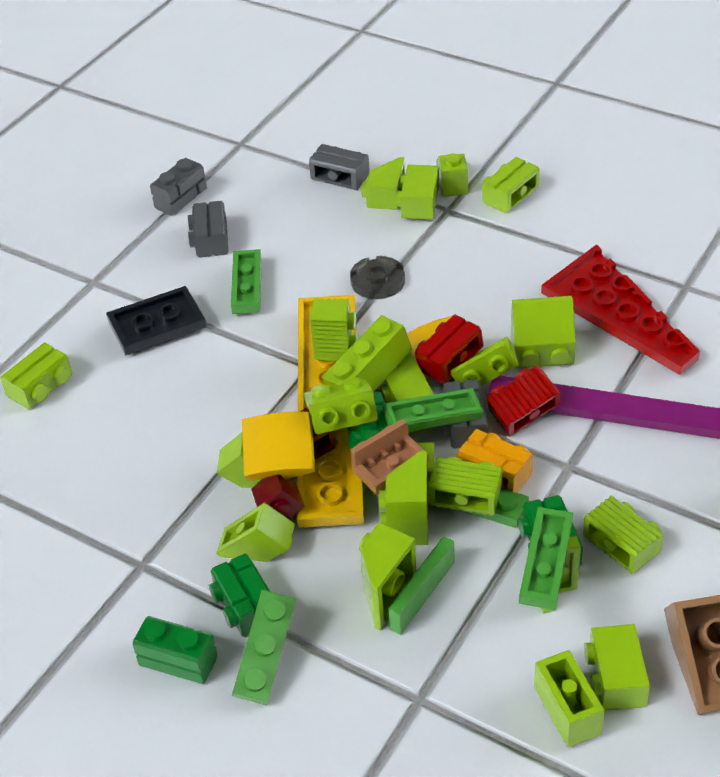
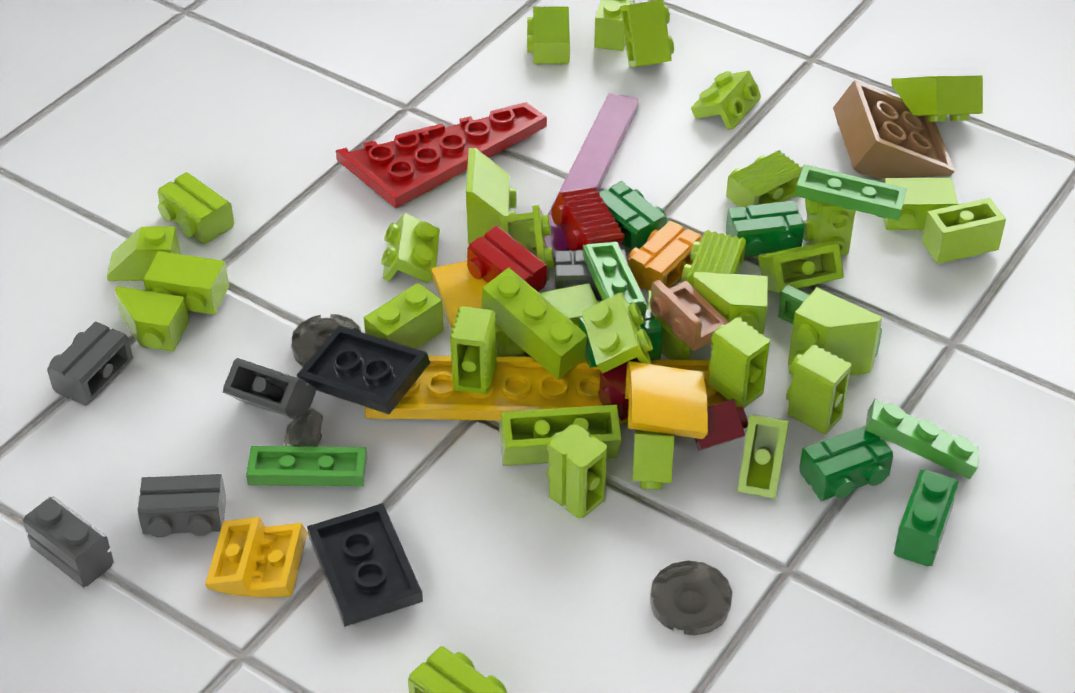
camera: 90 degrees left, 0 degrees up
(114, 500) = (691, 597): none -> clear smoke tile
(167, 272) = (256, 558): none -> yellow slope
(220, 409) = (577, 470): none -> lime brick
(261, 386) = (527, 432): none -> lime brick
(274, 275) = (305, 430): none -> clear smoke plate
(309, 247) = (268, 389): none -> dark grey brick
(314, 563) = (818, 388): none -> lime brick
(324, 492) = (738, 362): none -> lime brick
(326, 279) = (364, 369): none -> black plate
(386, 299) = (407, 318): none -> lime brick
(485, 304) = (410, 248): none -> lime bracket
(489, 557) = (802, 266): none -> lime brick
(551, 433) = (633, 214): none -> brick

